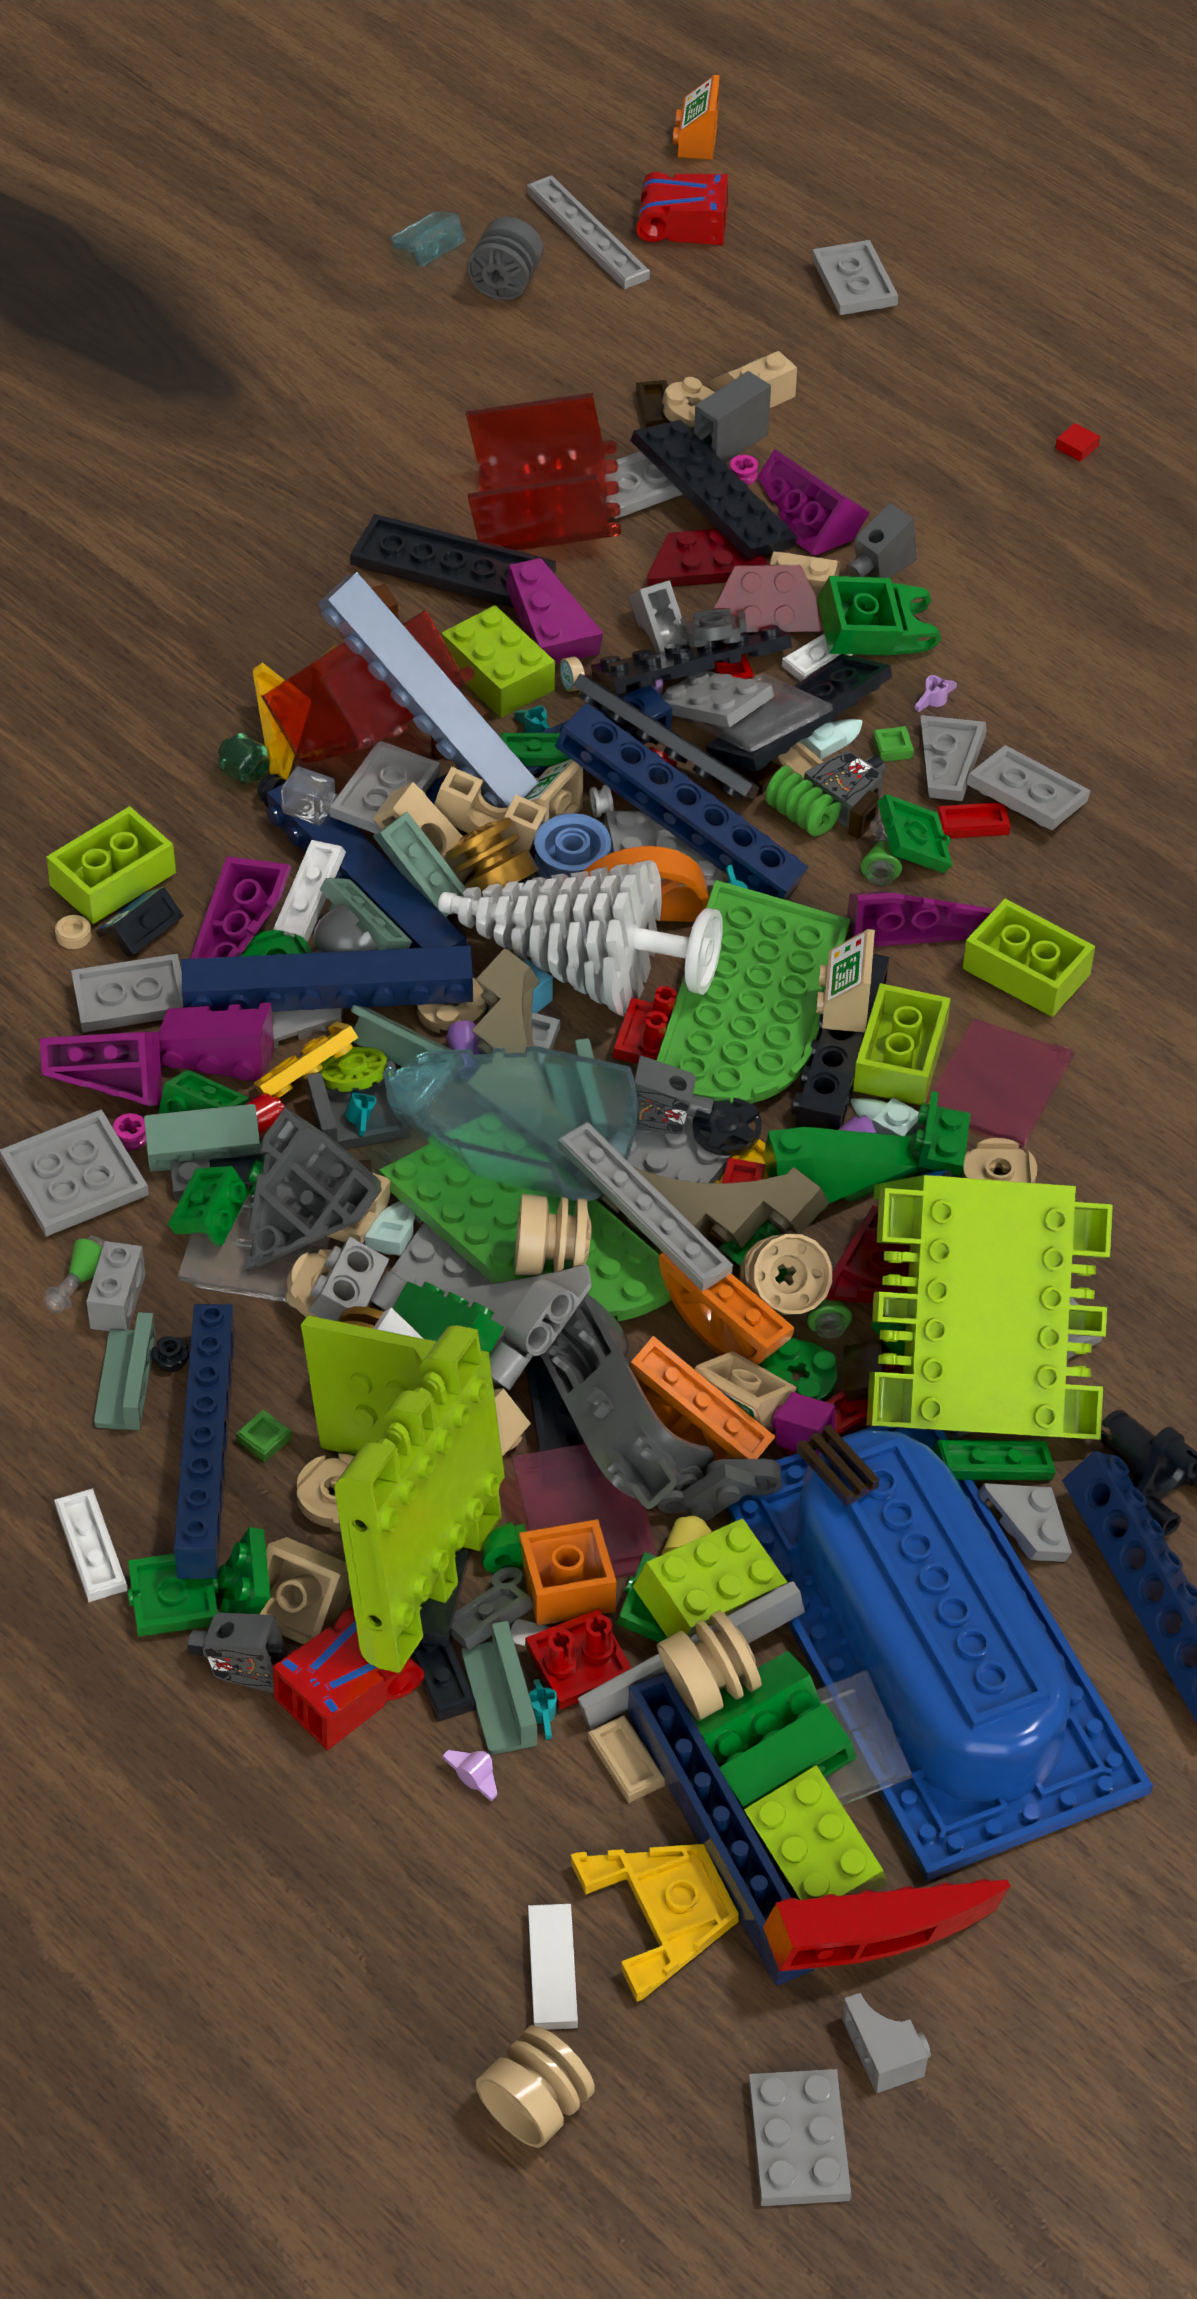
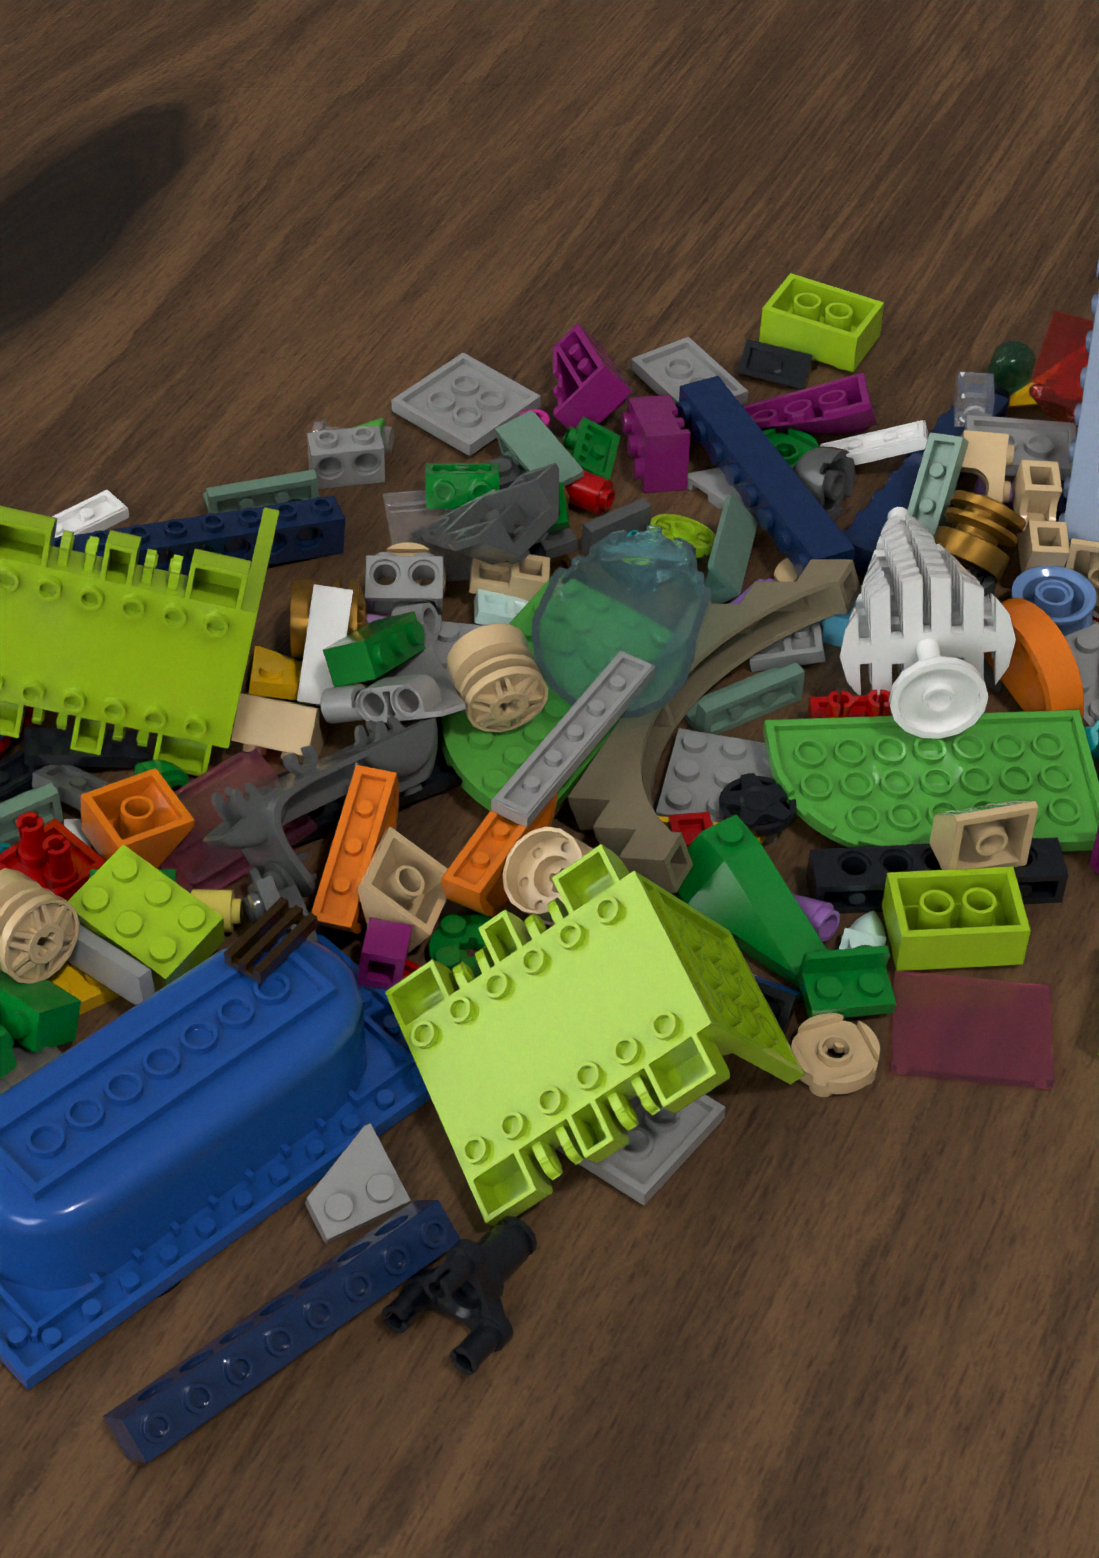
camera: 70 degrees right, 5 degrees down
(73, 932) = (741, 330): tan tile -> none
(316, 1051) = (667, 498): yellow wing -> none
(372, 919) = (859, 482): sand green panel -> none
(667, 1097) = (750, 746): dark grey torso -> none
(996, 1459) = (419, 1135): green tile -> none

